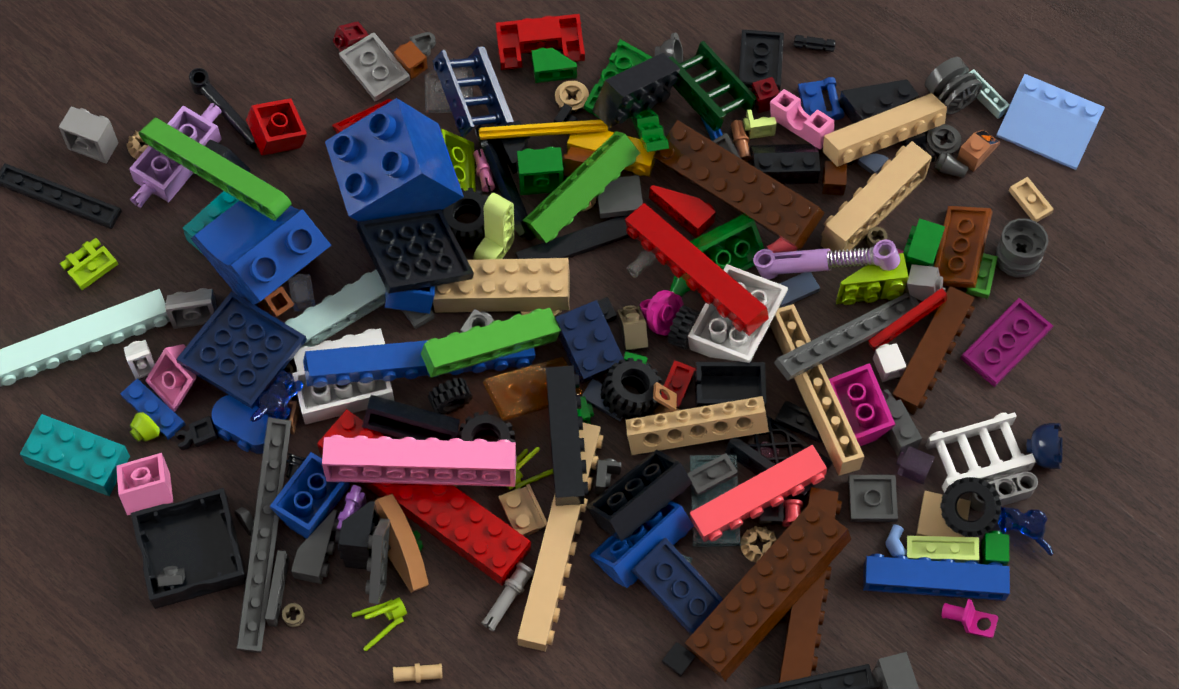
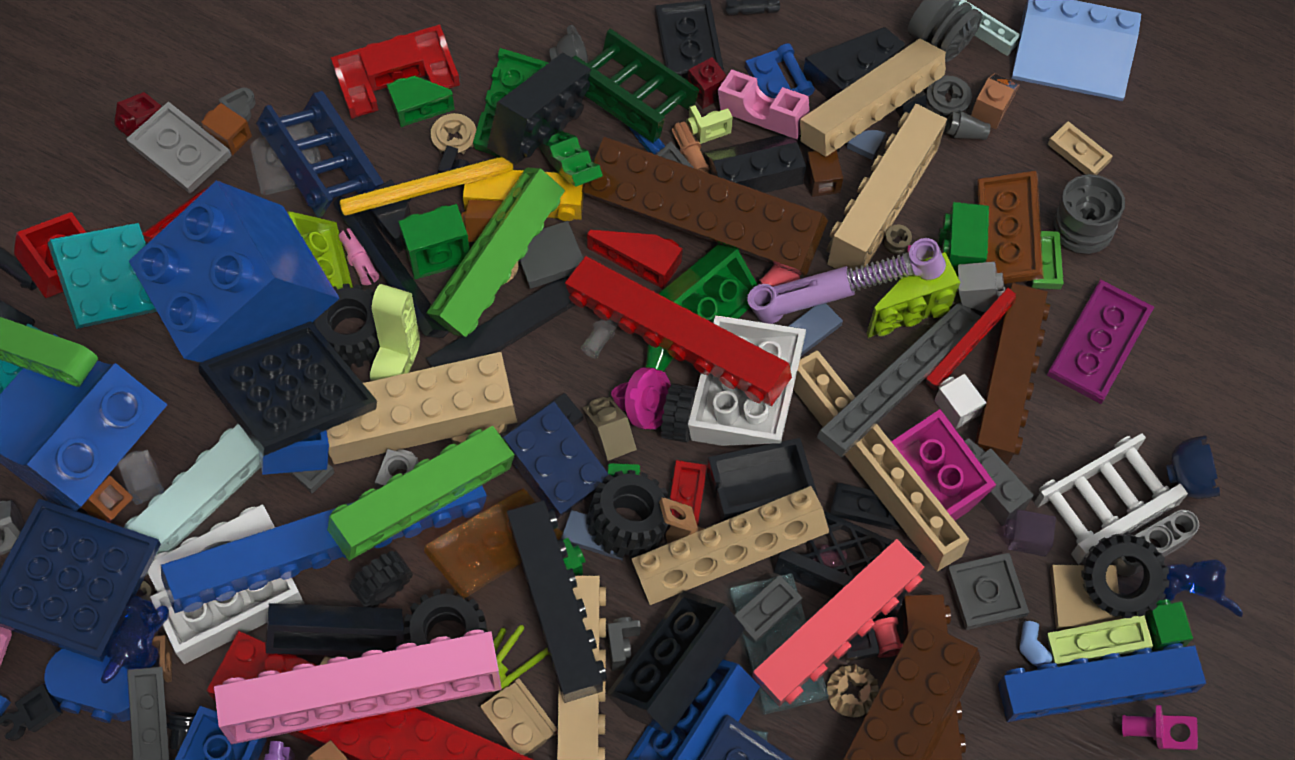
camera: 15 degrees left, 0 degrees up
(302, 147) = (98, 274): none -> teal plate

